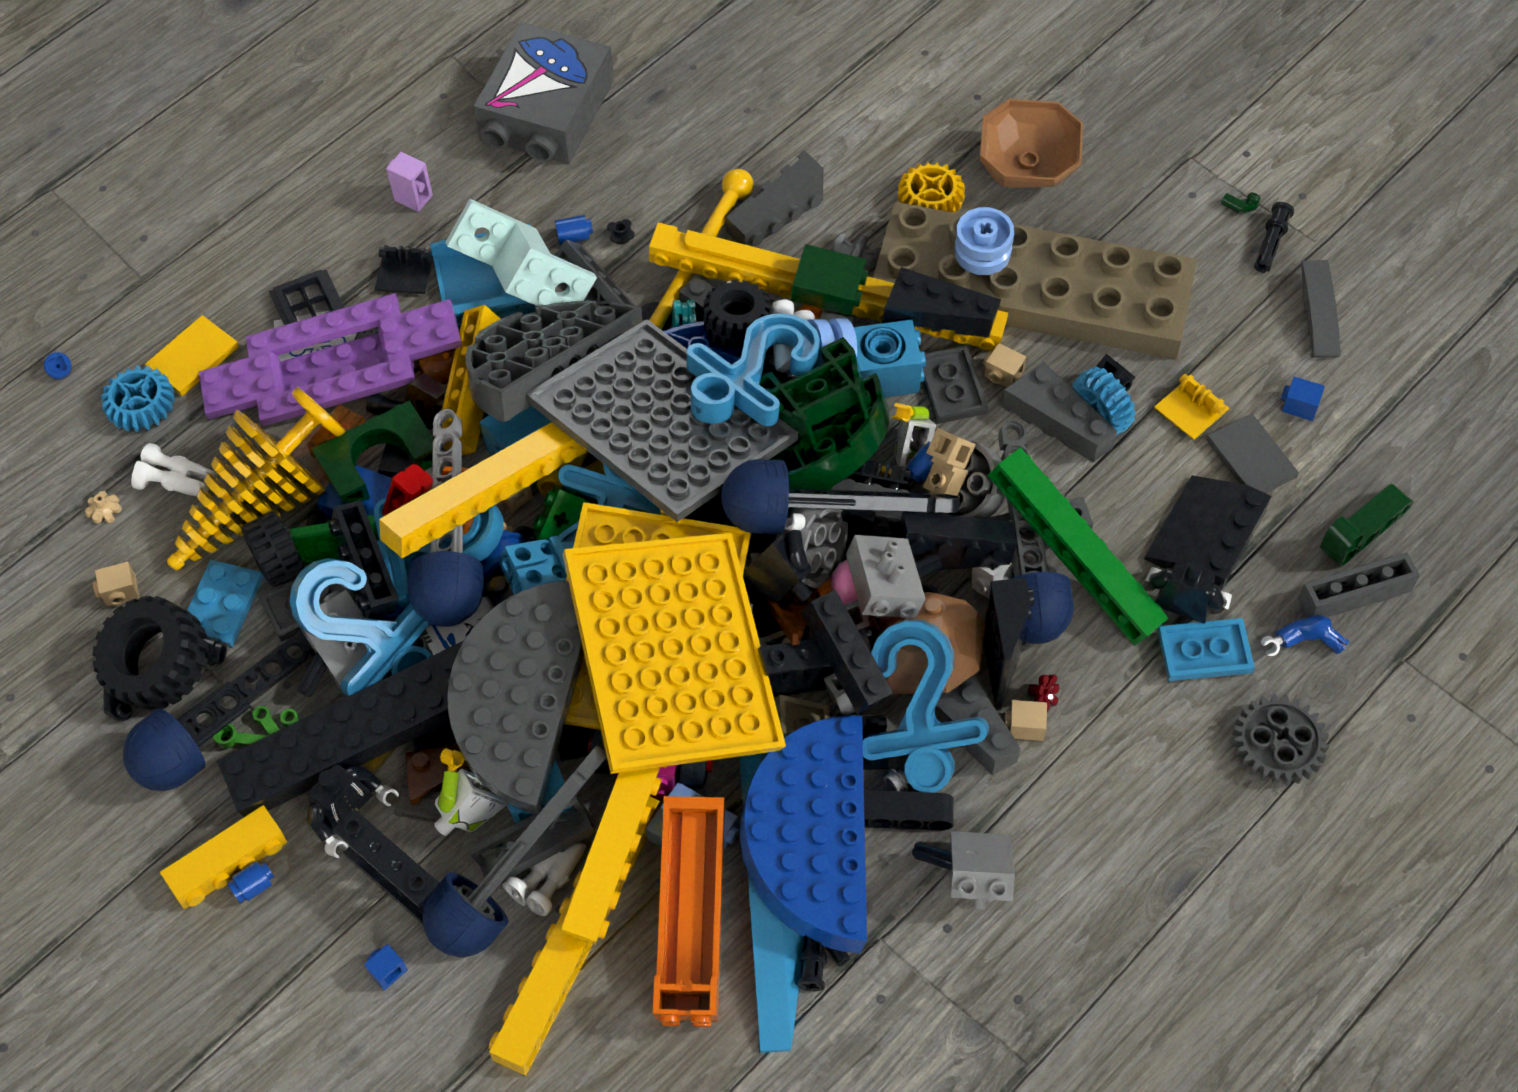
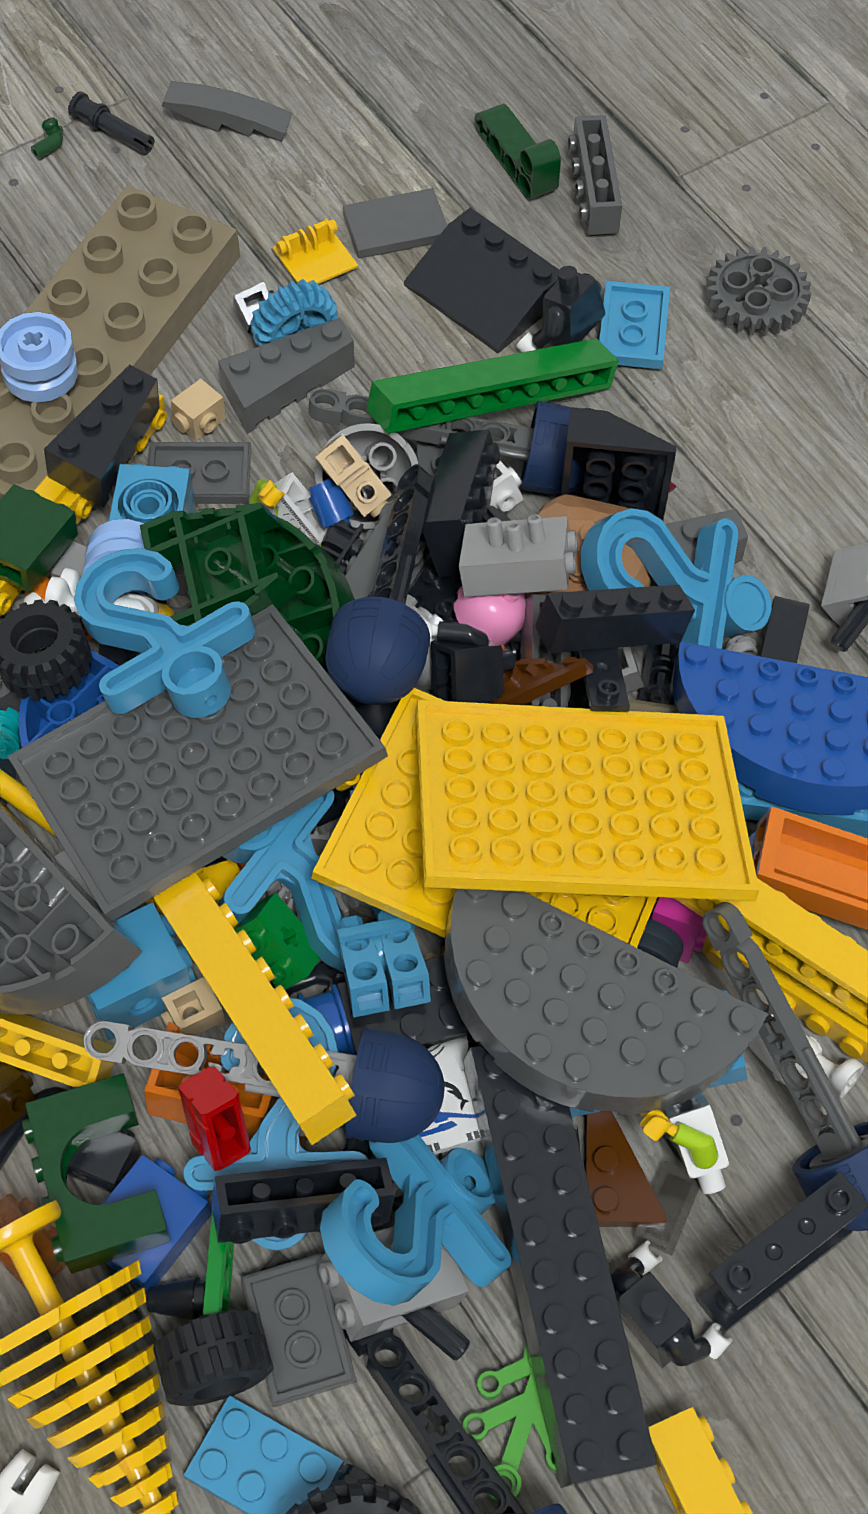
camera: 80 degrees left, 0 degrees up
(251, 881) = (753, 1470): blue brick -> none
(561, 833) = (774, 1106): dark grey fence -> none
(1027, 720) = (688, 498): tan brick -> none
(1302, 398) = (340, 156): blue brick -> none
(1306, 629) = (631, 236): blue arm -> none

